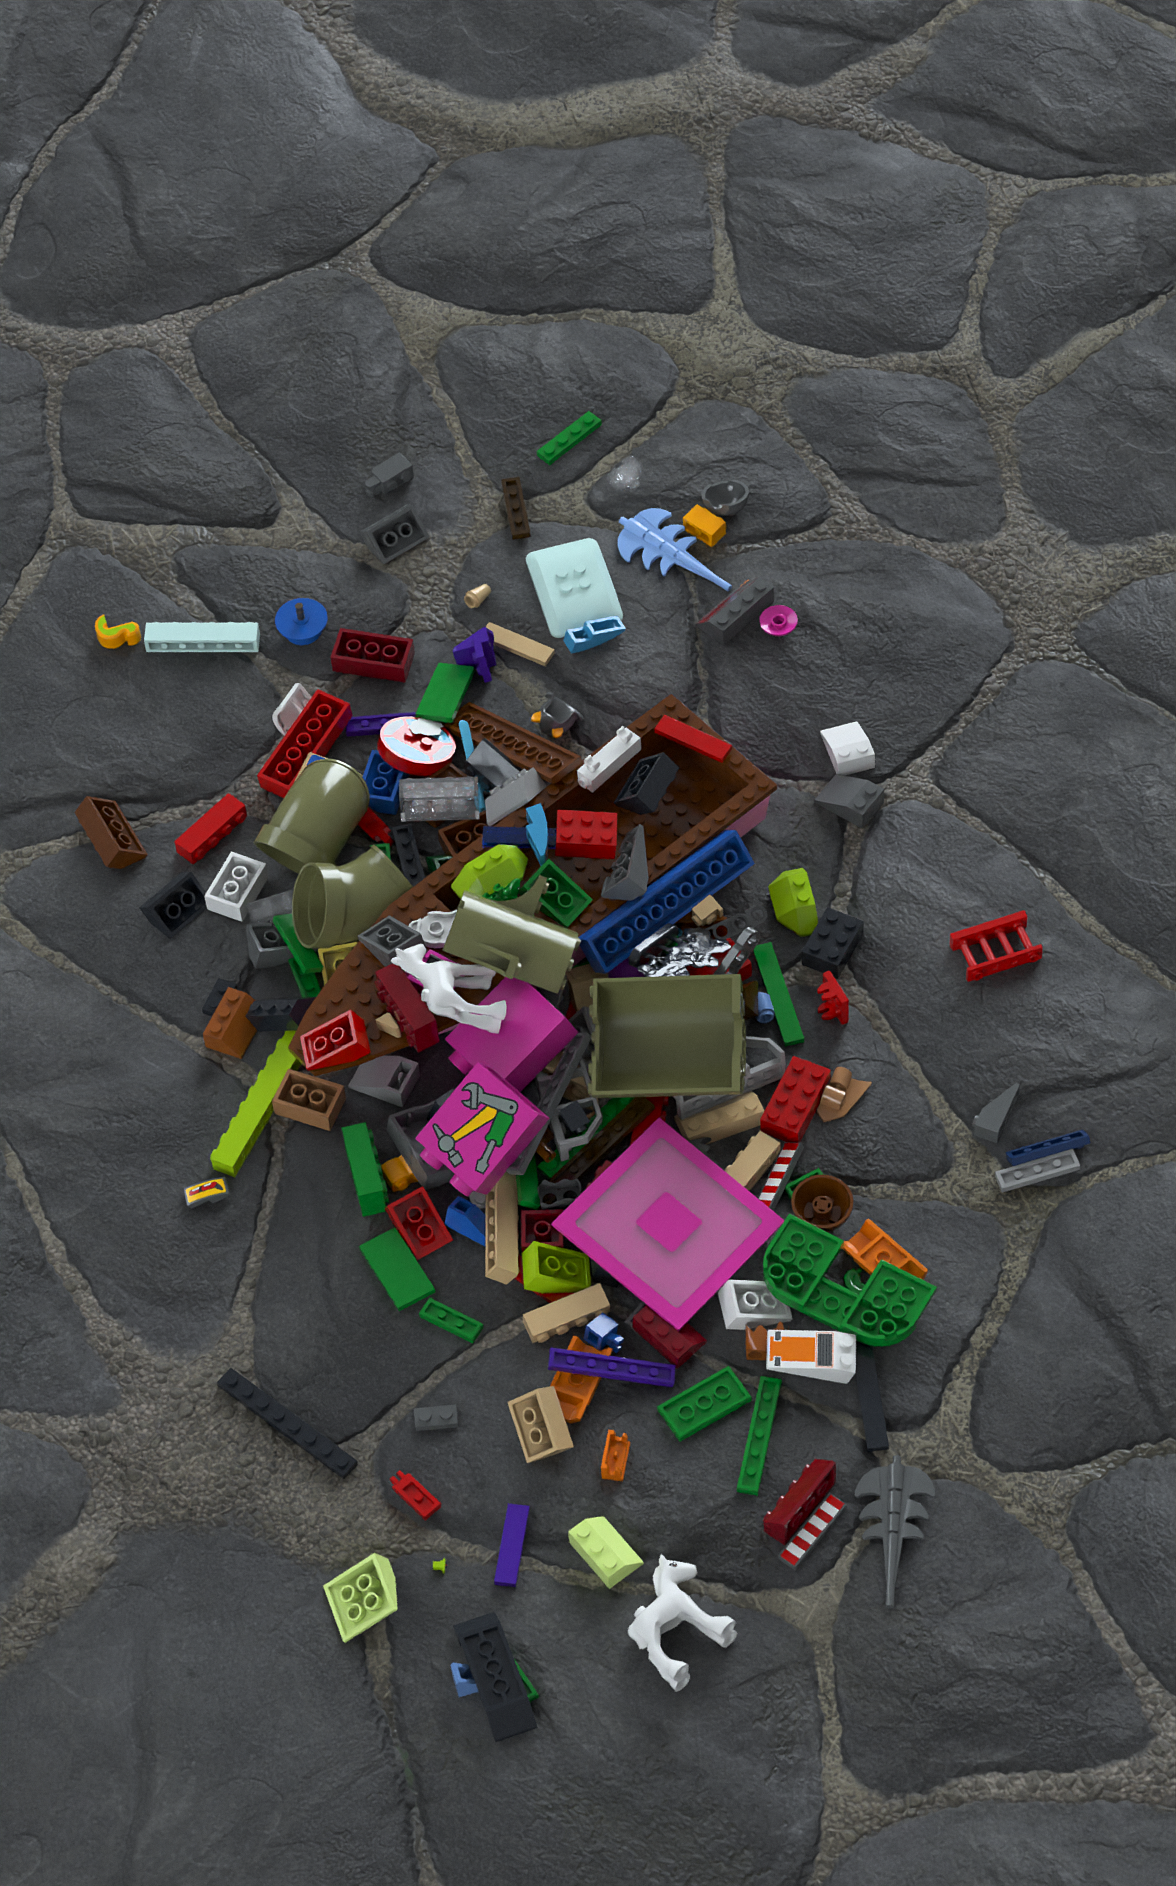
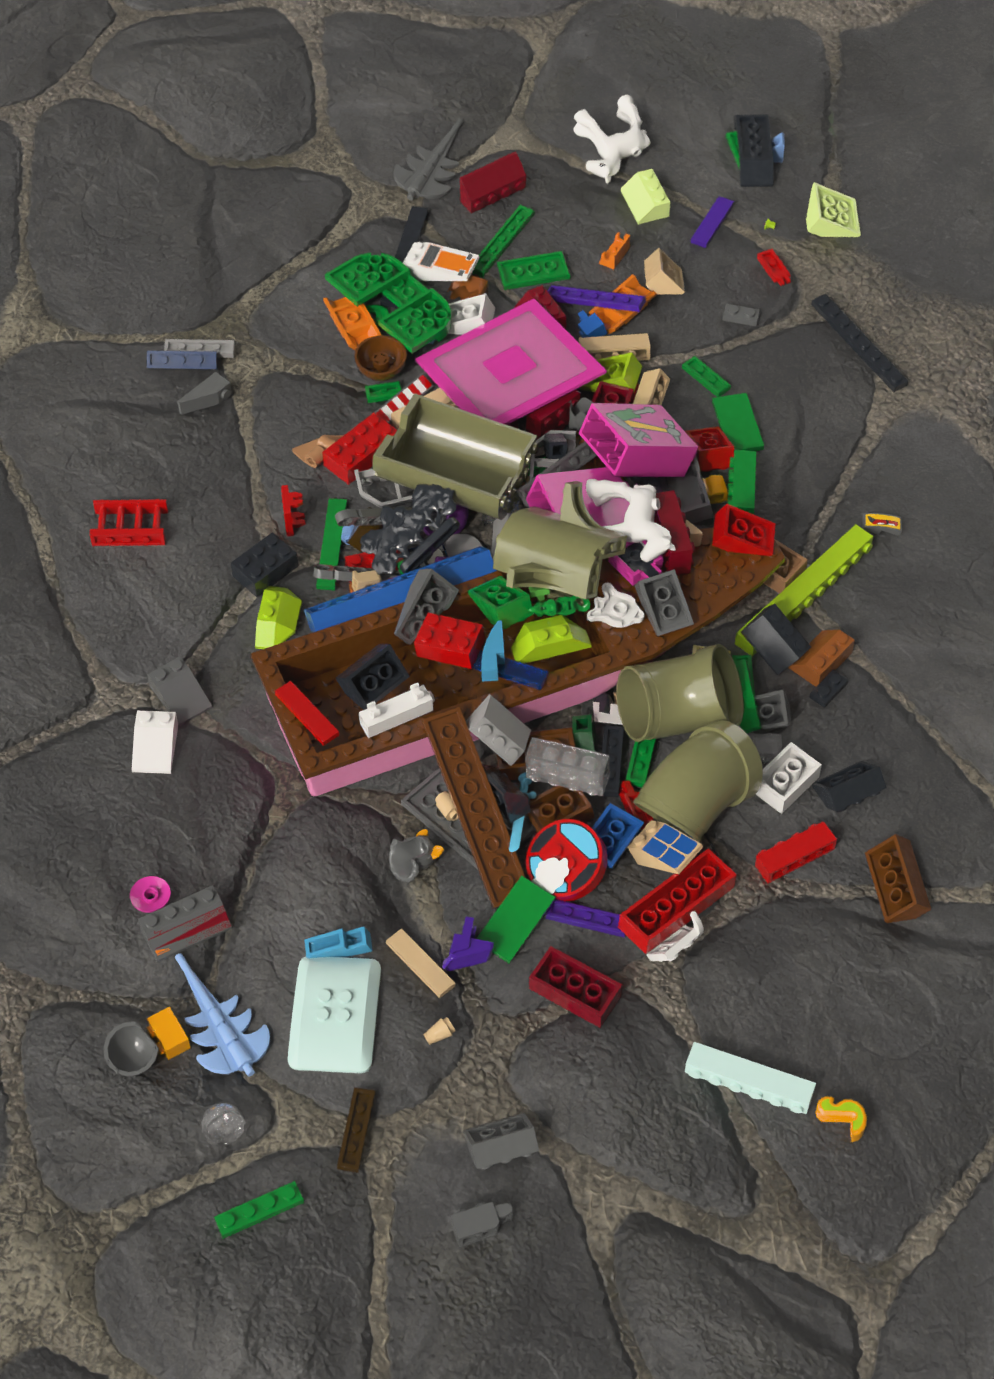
camera: 165 degrees left, 0 degrees up
(301, 620) = (638, 1048): blue piece -> none

